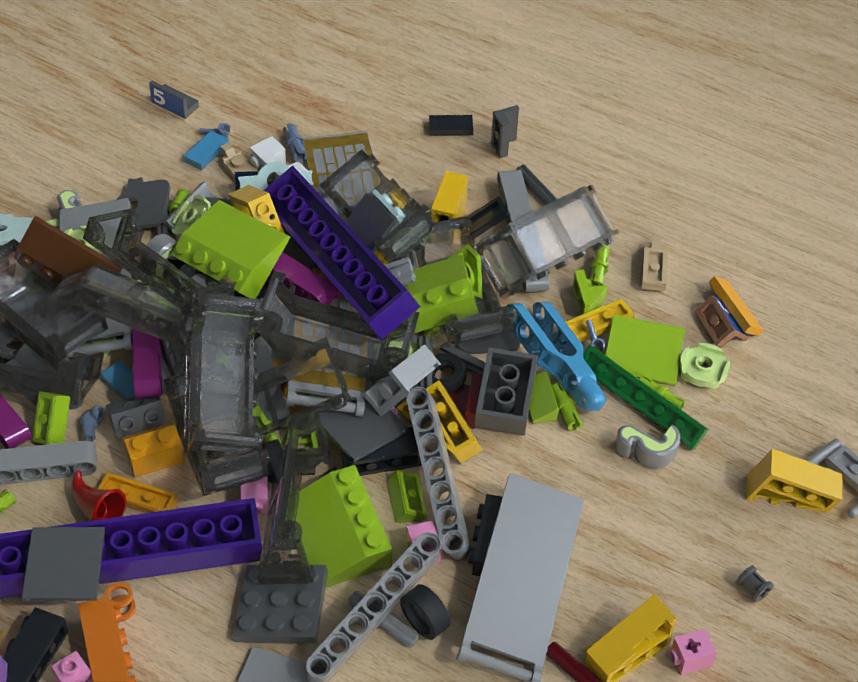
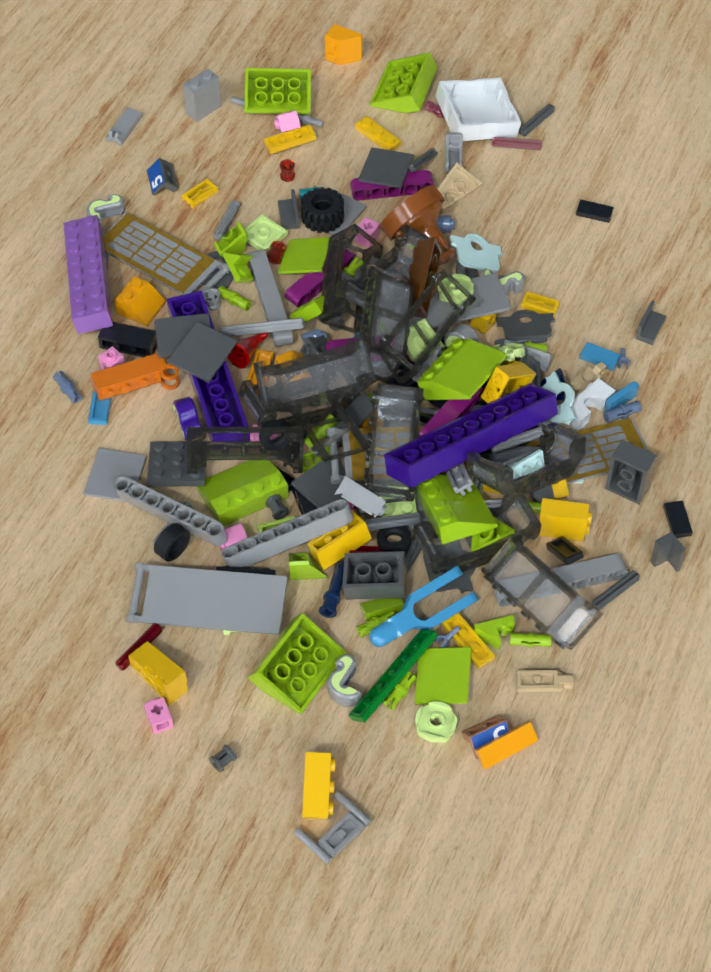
camera: 85 degrees right, 5 degrees up
(69, 469) = (262, 327): none -> light grey axle
(106, 539) = (202, 352): none -> dark grey piece
(111, 192) = (538, 305): none -> yellow tile
(203, 578) = (186, 414): none -> dark purple animal
(271, 129) = (622, 396): none -> dark azure tile
(379, 490) = (278, 509): none -> dark grey bush
(399, 135) = (630, 471): none -> dark grey brick
(473, 475) = (303, 567): none -> lime slope
(523, 445) = (332, 596): none -> dark blue pin
(620, 492) = (297, 664): none -> lime slope

